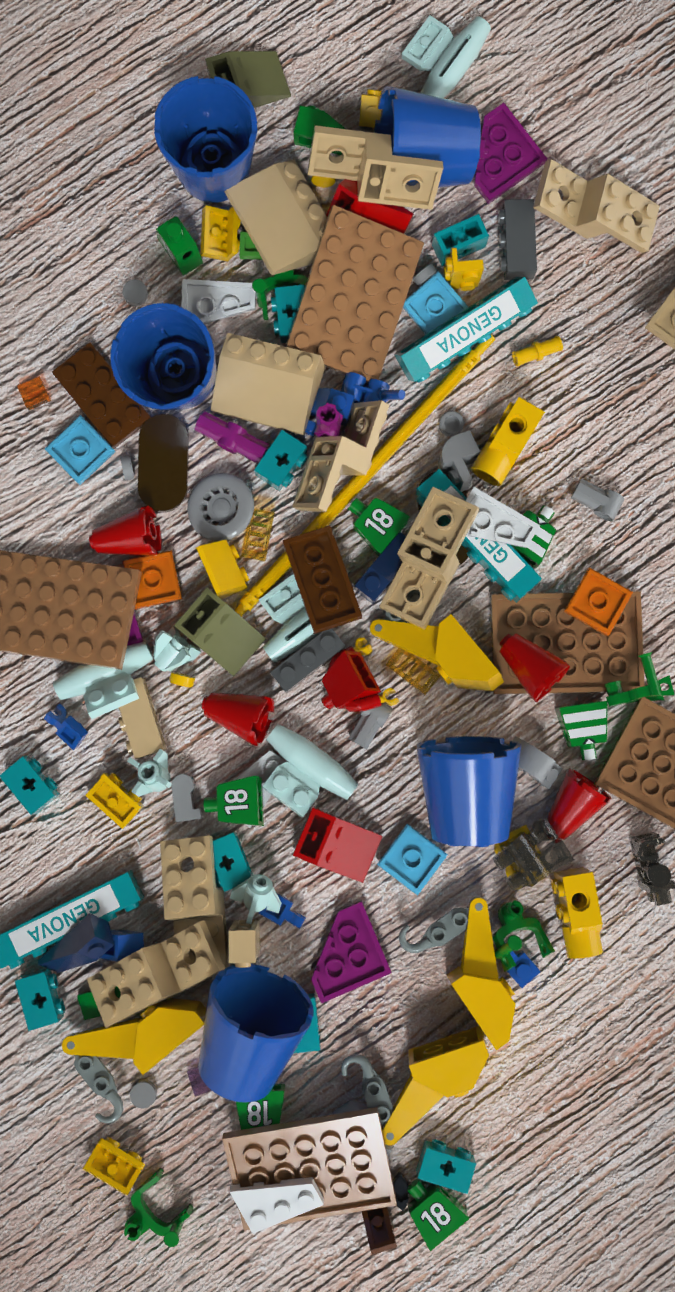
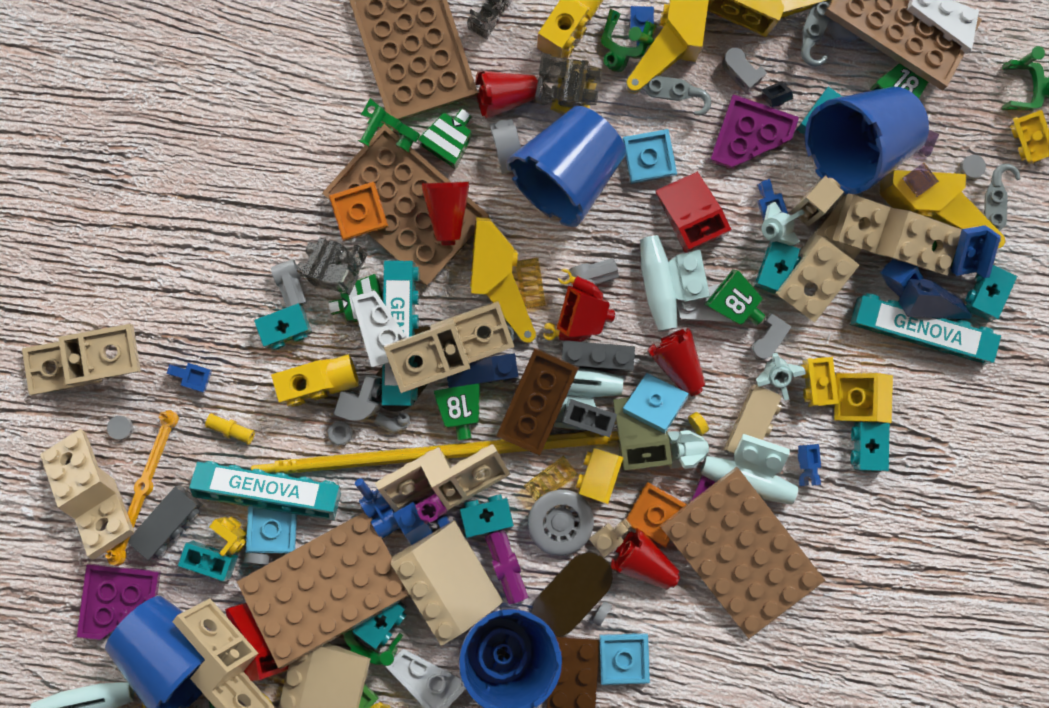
camera: 135 degrees left, 0 degrees up
(68, 818) = (864, 397): none -> yellow slope
(79, 1018) = (976, 251): none -> blue bracket
(172, 529) = (609, 538): none -> tan plate
(175, 1034) = (920, 179): none -> tile
(229, 664) = (655, 402): none -> medium azure plate
(270, 602) = (589, 417): none -> dark grey brick
(356, 1006) = (777, 94): none -> black plate
(402, 1000) = (741, 70): none -> light grey leg
(417, 466) = (394, 424): none -> light grey arm
(580, 452) = (269, 326): none -> teal brick
(584, 536) = (331, 264): none -> clear smoke hips
(589, 316) = (168, 420): none -> light orange piece
(602, 364) = (193, 376): none -> blue plate
(620, 278) = (120, 427): none -> light grey tile

